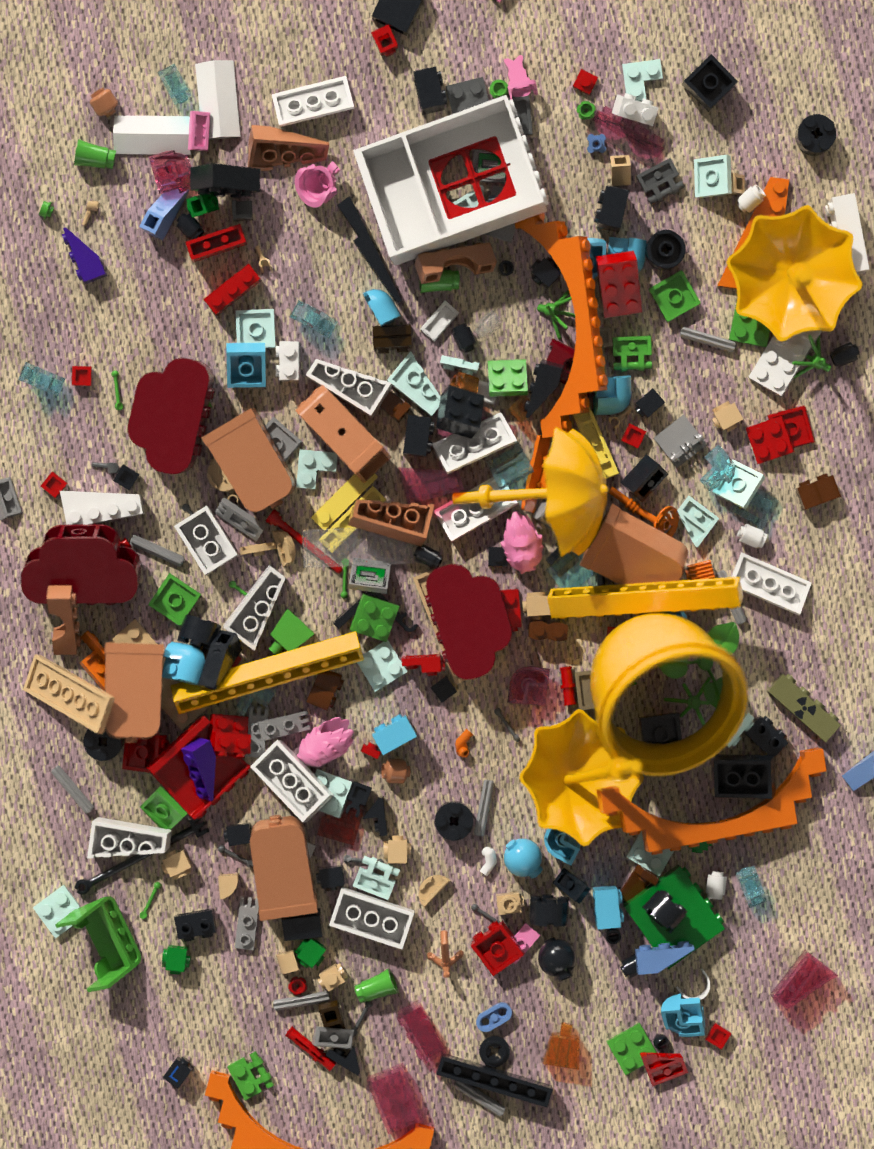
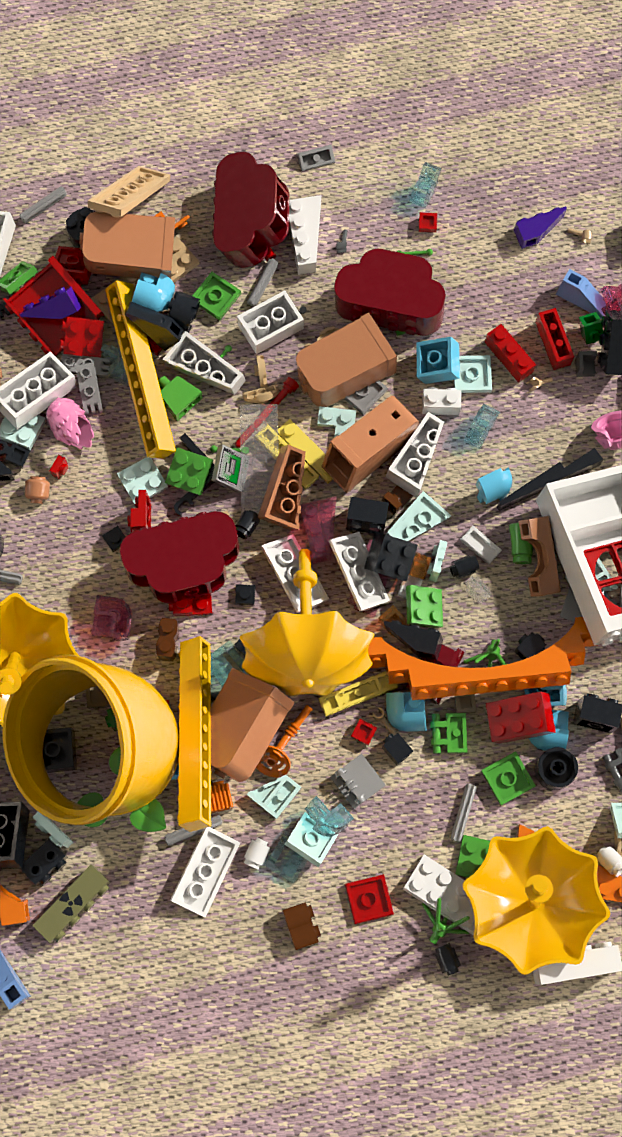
camera: 90 degrees right, 15 degrees down
(46, 210) = (581, 197): bright green plate -> none
(54, 484) = (328, 196): red plate -> none
(61, 603) = (214, 185): nougat arch -> none
(126, 477) = (332, 257): black plate -> none
(189, 226) = (570, 317): black brick -> none
(240, 519) = (288, 356): light grey hinge -> none
(324, 689) = (121, 426): reddish brown brick -> none
(392, 338) = (464, 498): dark brown brick -> none
(394, 734) = (73, 485): medium azure brick -> none
(461, 744) = (59, 554): orange arm -> none
(498, 711) = (89, 590): dark grey hinge -> none
(509, 267) = (534, 613): black hinge -> none
(511, 471) = (327, 602): clear light blue plate -> none
(522, 543) = (255, 612): bright pink head -> none
(536, 605) = (194, 627): tan brick -> none
(567, 686) = (112, 658): red pin -> none
(644, 478) = (320, 740): black brick -> none
(693, 701) = (83, 782): bright green plant -> none
(726, 416) = (382, 829): tan brick -> none
(770, 439) = (357, 875): red plate -> none

